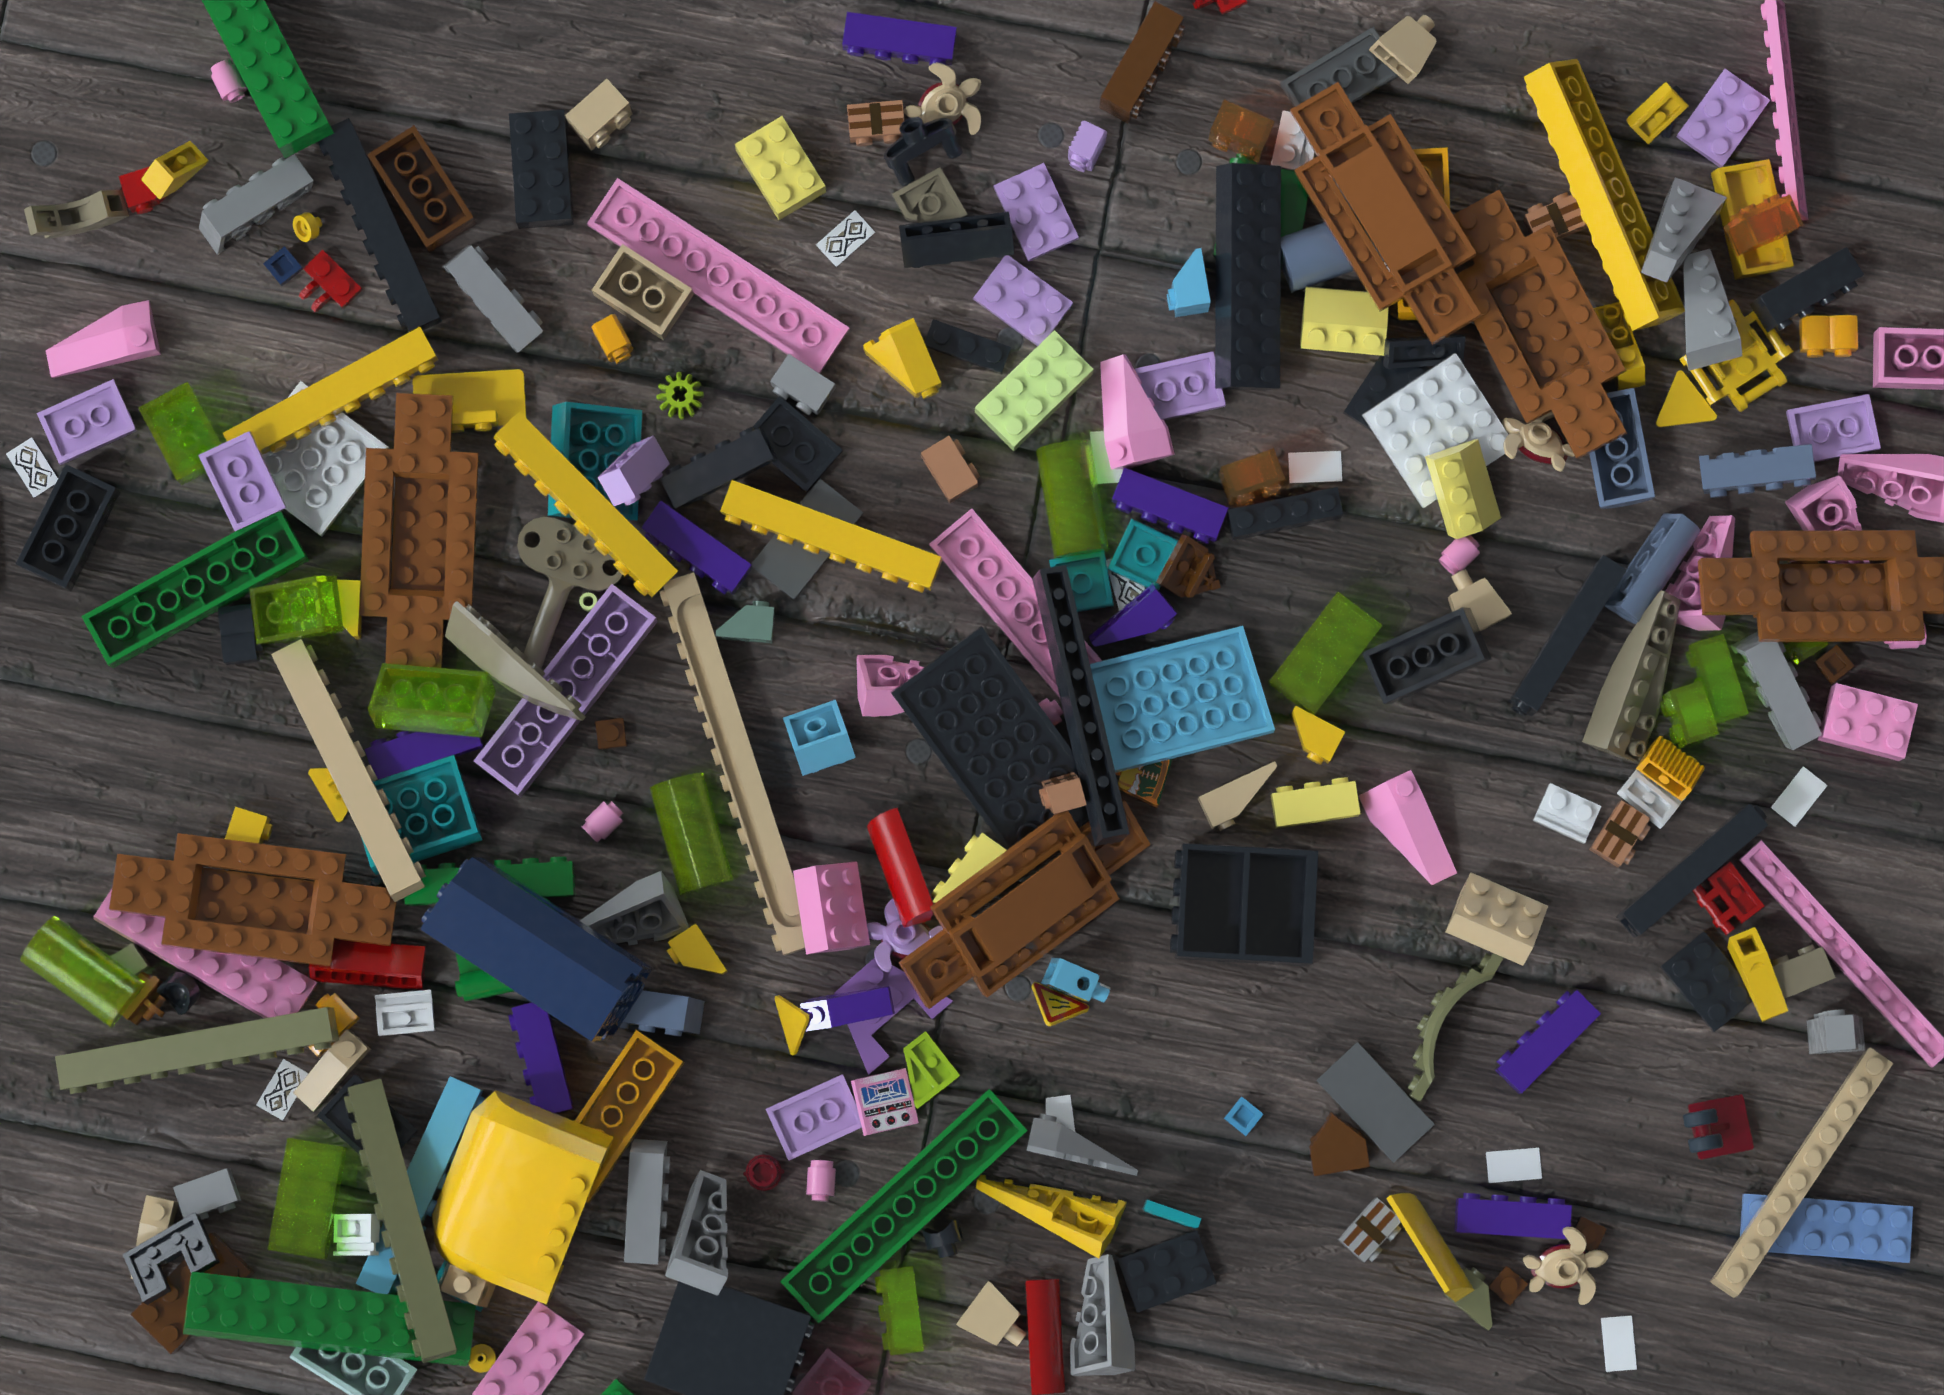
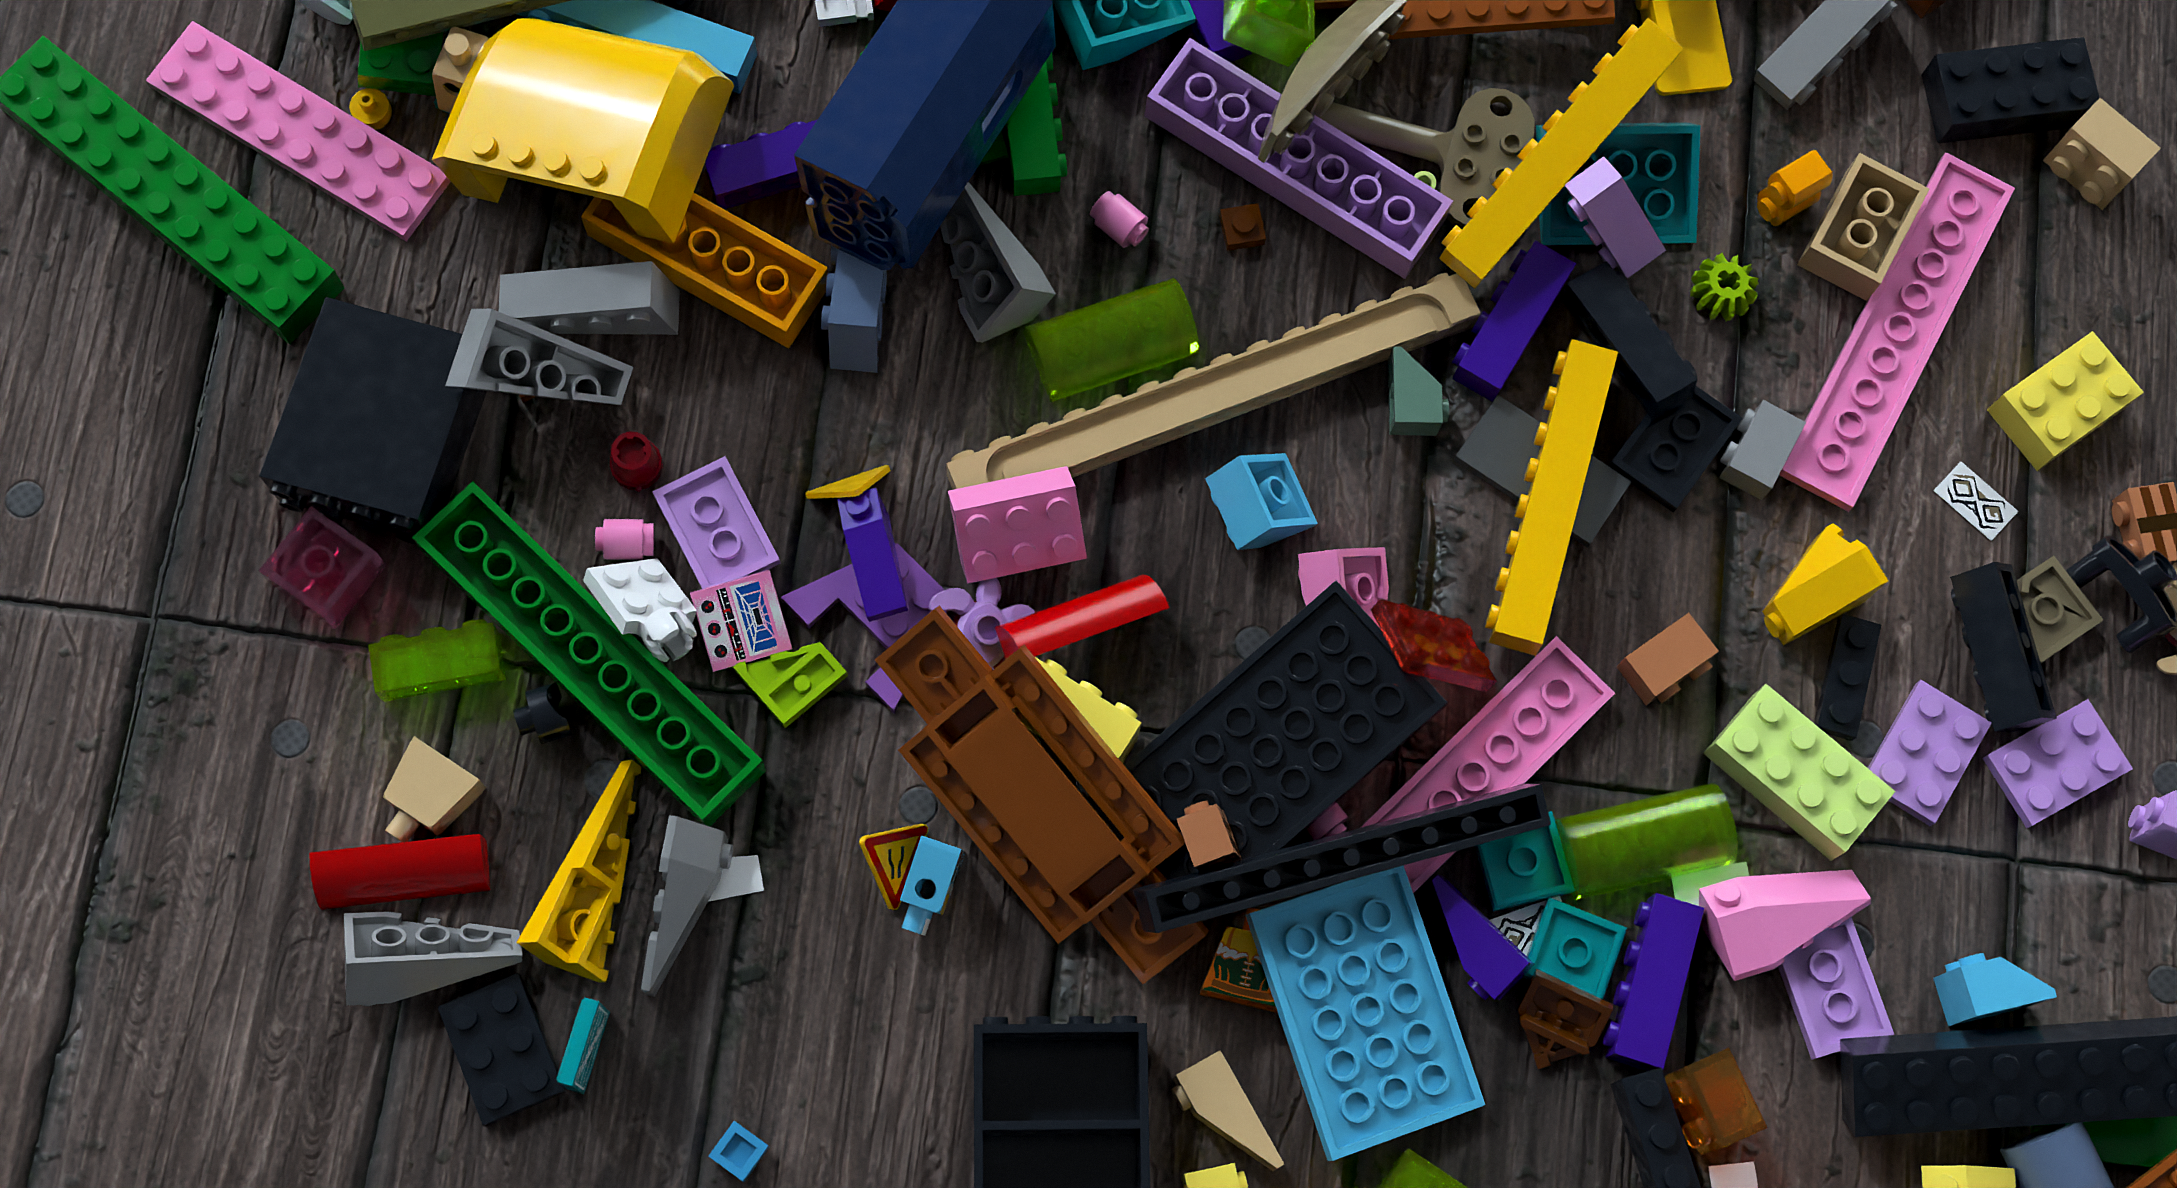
camera: 80 degrees right, 10 degrees down
(695, 951) = (945, 351): yellow slope -> none
(873, 1165) = (645, 602): none -> white plate
(937, 630) = (1433, 645): none -> clear red plate

